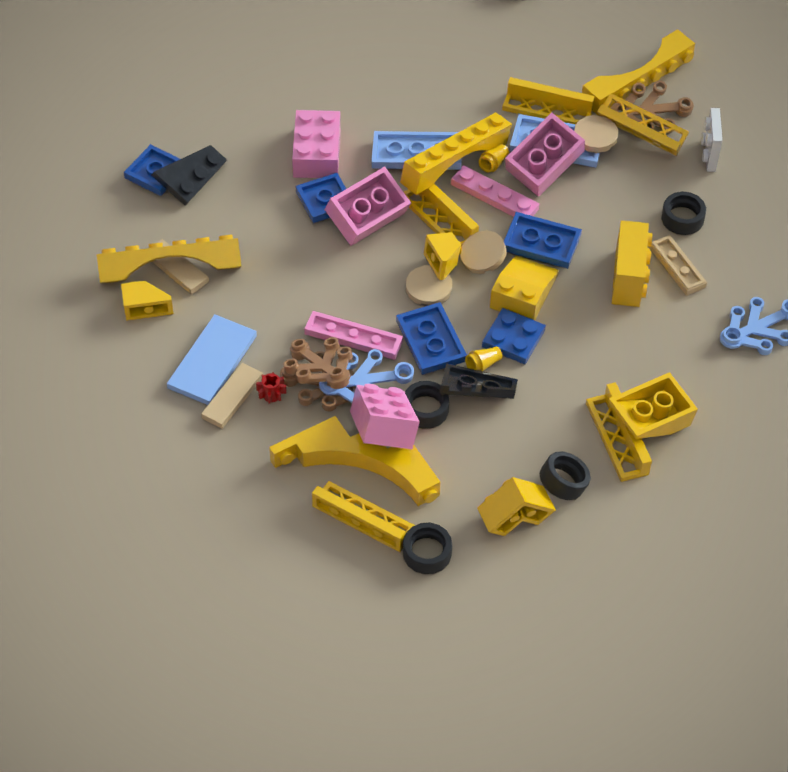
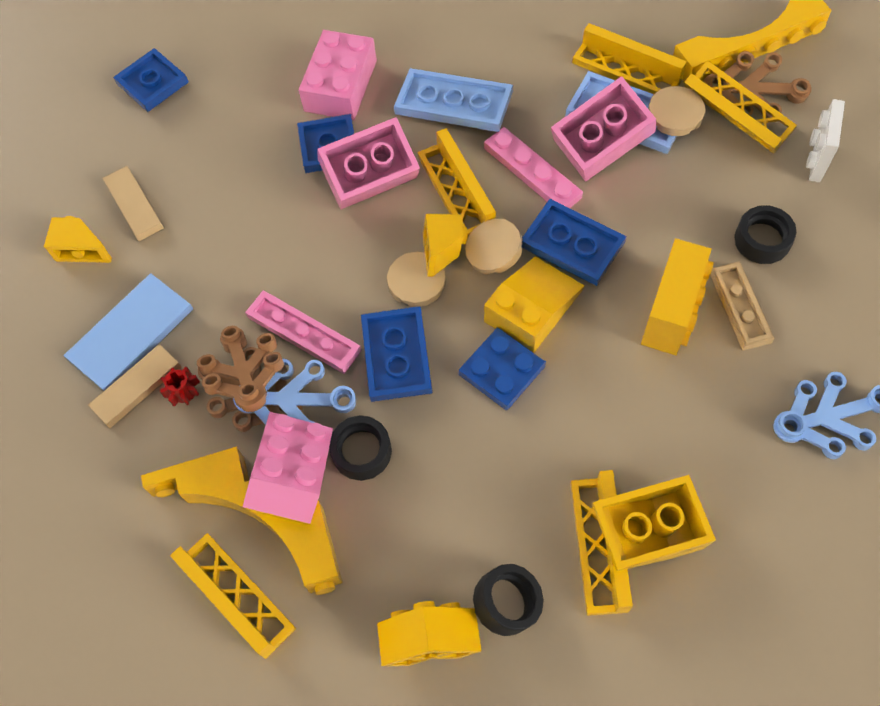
camera: 20 degrees right, 10 degrees up
(118, 266) = (176, 198): yellow arch -> none
(190, 174) = (186, 89): black wing -> none
(426, 167) = (450, 124): yellow arch -> none
(430, 565) = (270, 662): black tyre -> none
(476, 383) = (429, 432): black wing -> none
(483, 358) = (450, 396): yellow cone -> none
(491, 159) = (539, 124): yellow cone -> none

